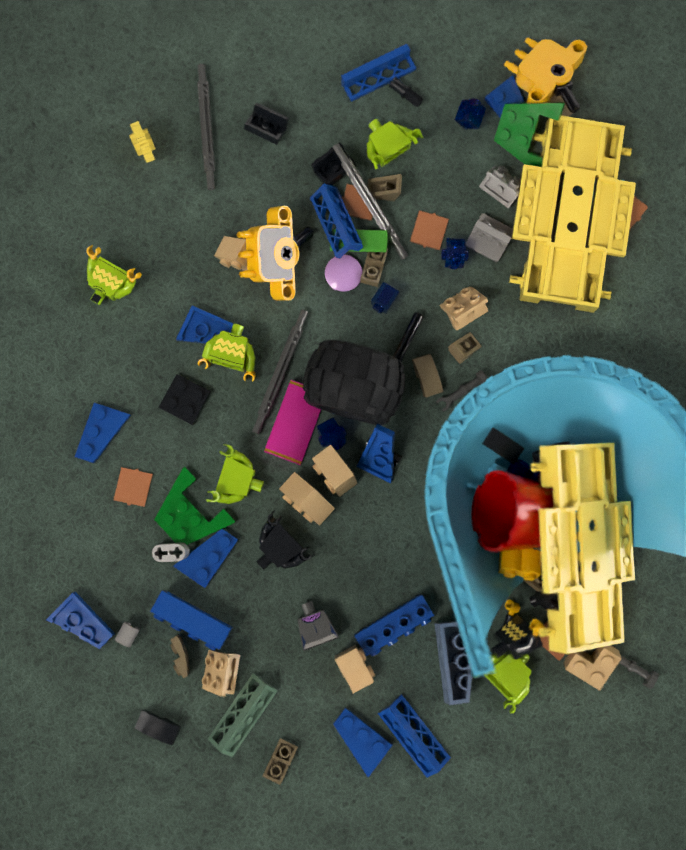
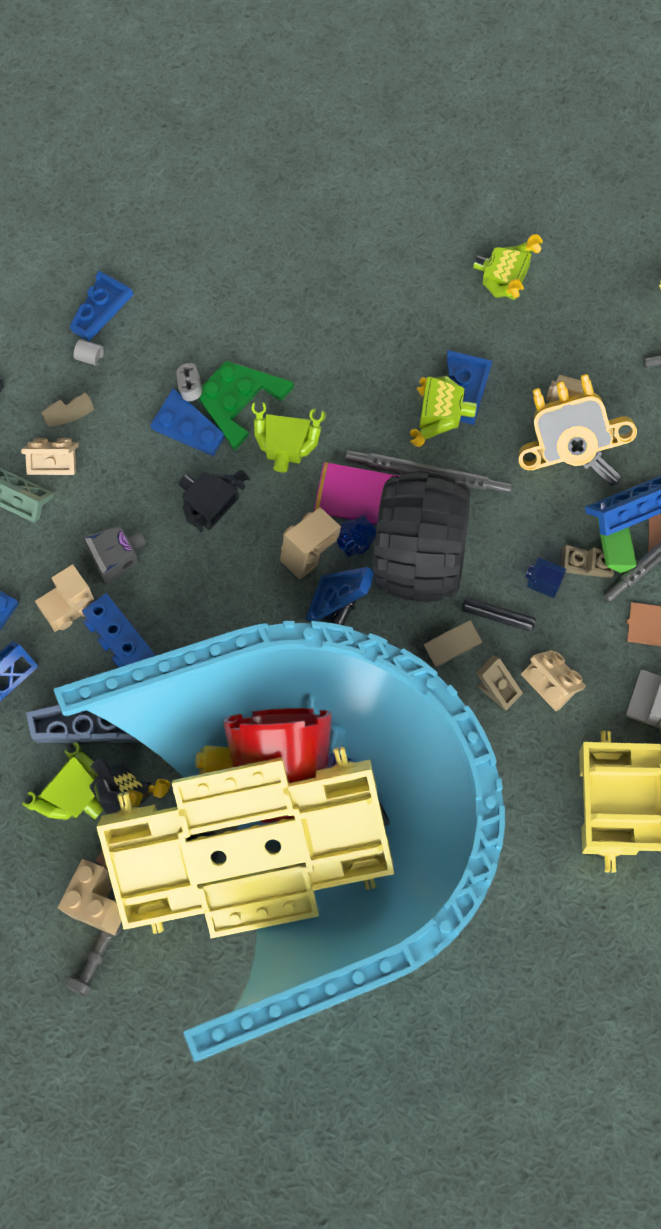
camera: 90 degrees right, 15 degrees down
(99, 431) = (325, 291): blue wing -> none
(133, 487) = (262, 336): nougat piece -> none
(184, 399) = (375, 373): black plate -> none
(191, 619) = (110, 414): blue brick -> none
(306, 499) = (268, 517): tan brick -> none
(343, 273) = (570, 526): lavender dish -> none
(454, 253) = (624, 654): clear blue brick -> none
(503, 445) = (370, 735): black slope -> none

